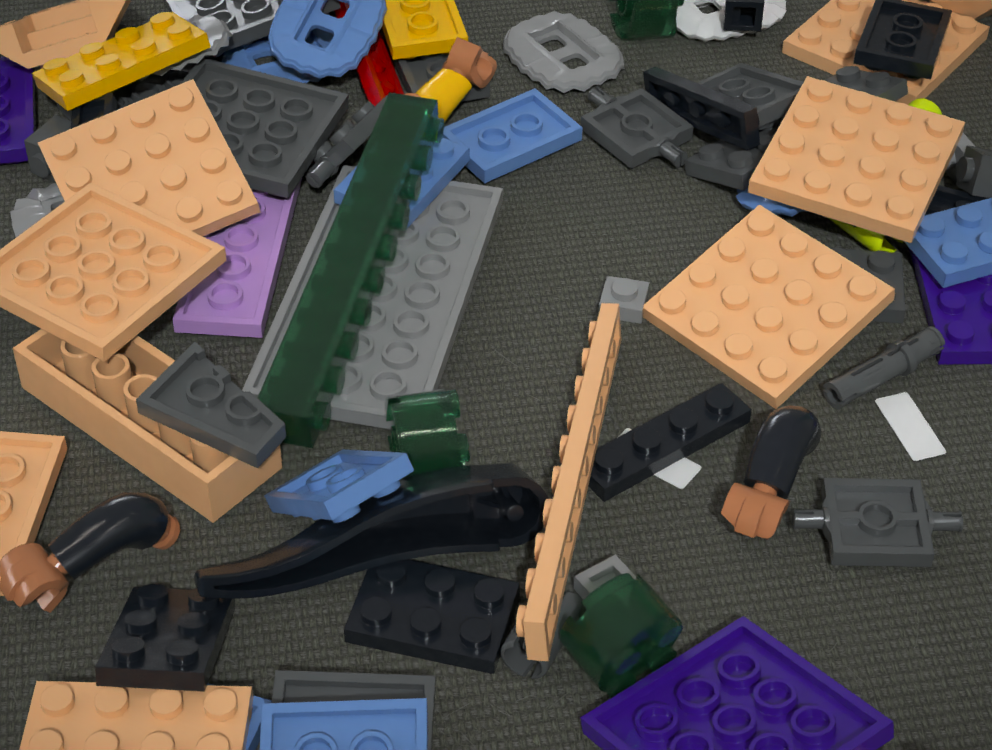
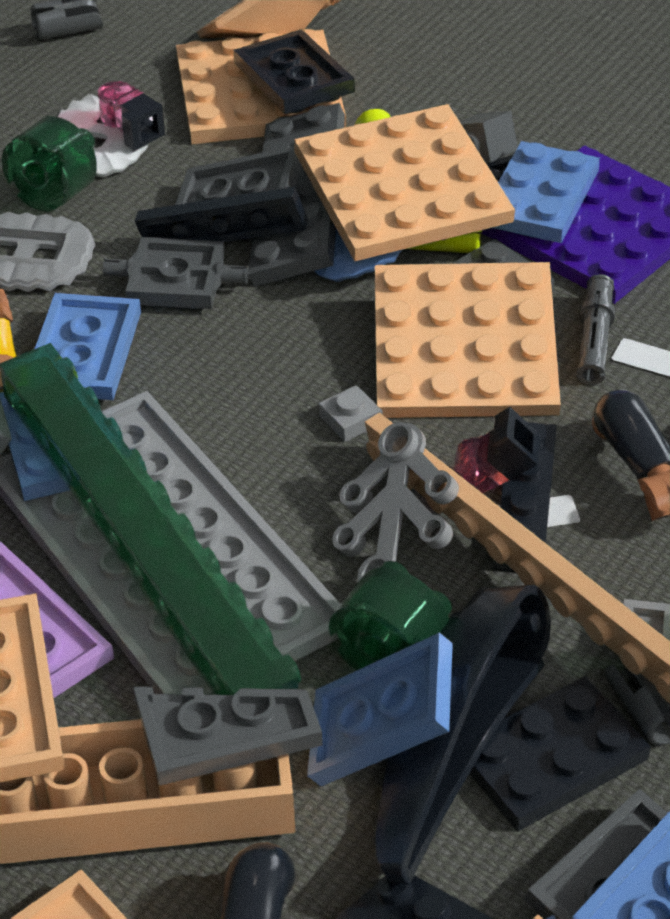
camera: 45 degrees left, 0 degrees up
(539, 368) = (400, 449): none -> light grey plant
(665, 390) = (499, 453): none -> leg

